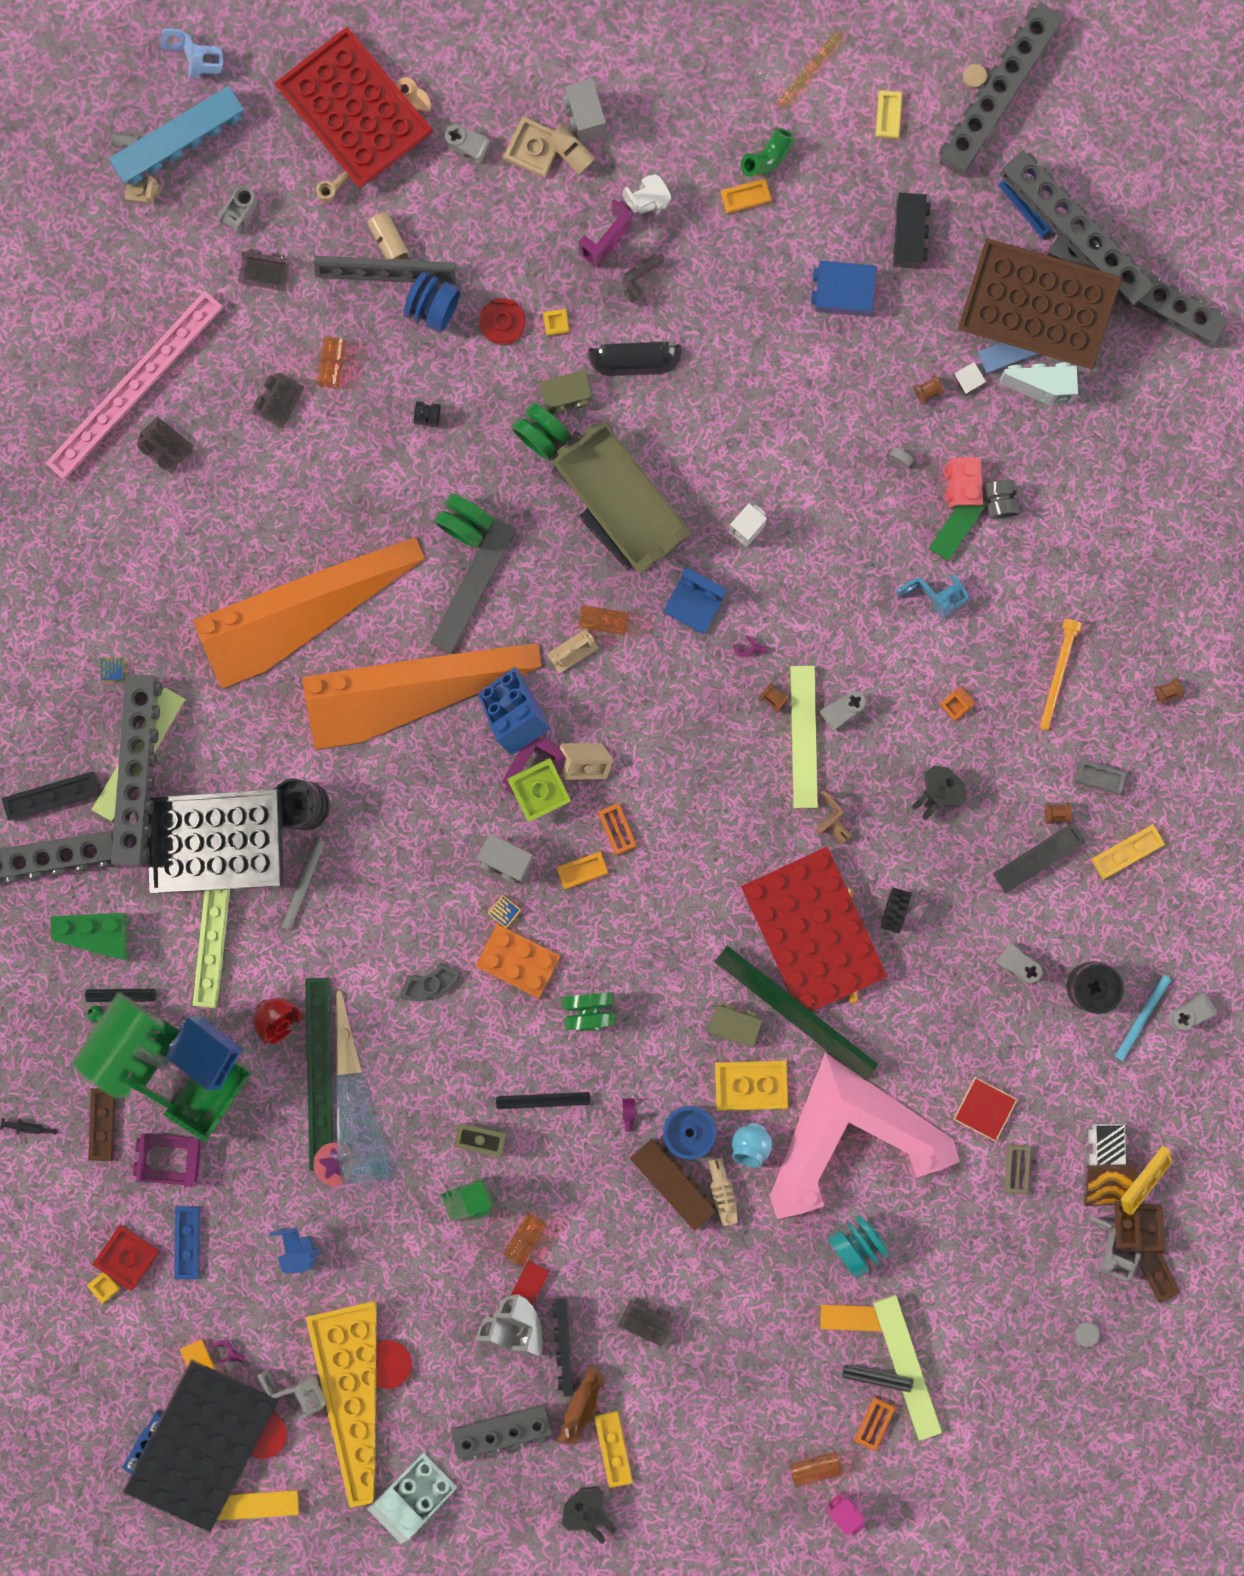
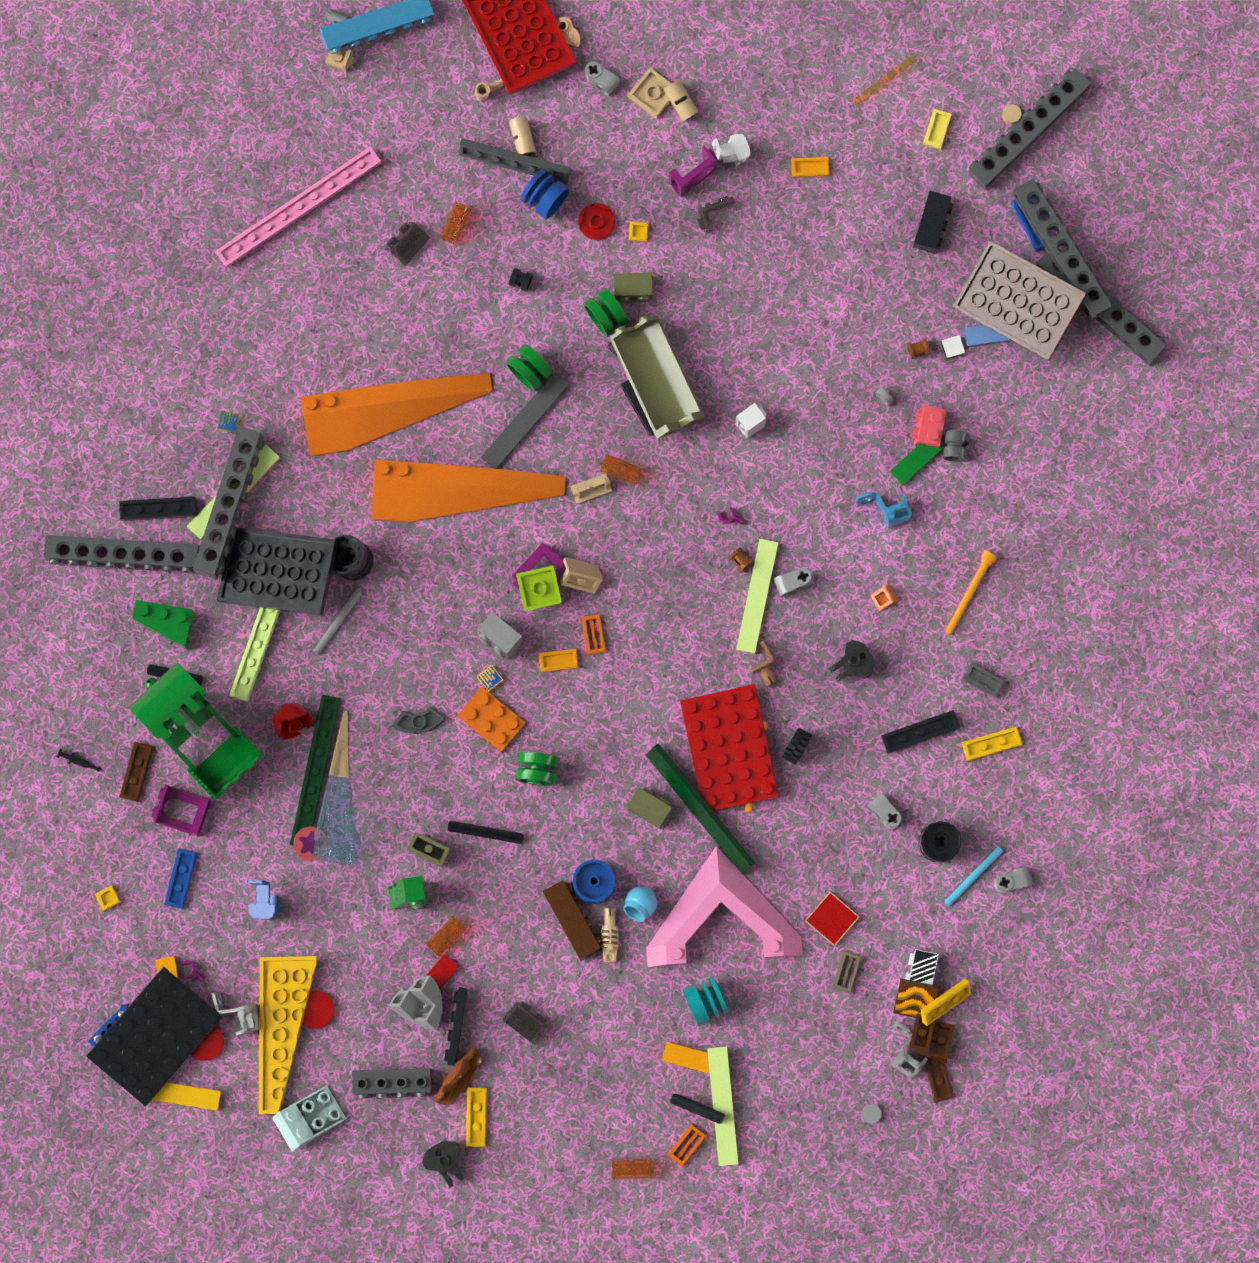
camera: 15 degrees right, 5 degrees down
(126, 1258) = (130, 879): red tile -> none
(164, 445) = (310, 258): clear smoke bracket -> none
(203, 1053) = (230, 729): blue brick -> none
(237, 210) = (409, 92): light grey piece -> none
(264, 270) = (420, 141): clear smoke bracket -> none
(513, 711) = (533, 524): blue slope -> none
(585, 110) = (698, 68): light grey brick -> none
(628, 1113) = (550, 857): magenta piece -> none
(635, 358) = (693, 273): black brick -> none
(695, 601) = (696, 471): blue bracket -> none
(751, 1085) = (652, 858): yellow tile -> none
(770, 156) = (837, 140): green cylinder -> none
(844, 288) = (870, 255): blue brick -> none
(845, 1514) = (647, 1208): dark pink brick -> none
(1043, 383) = (1012, 364): light aqua slope -> none
(1058, 813) = (943, 700): dark orange bush -> none
(1168, 691) = (1053, 625): dark orange bush -> none

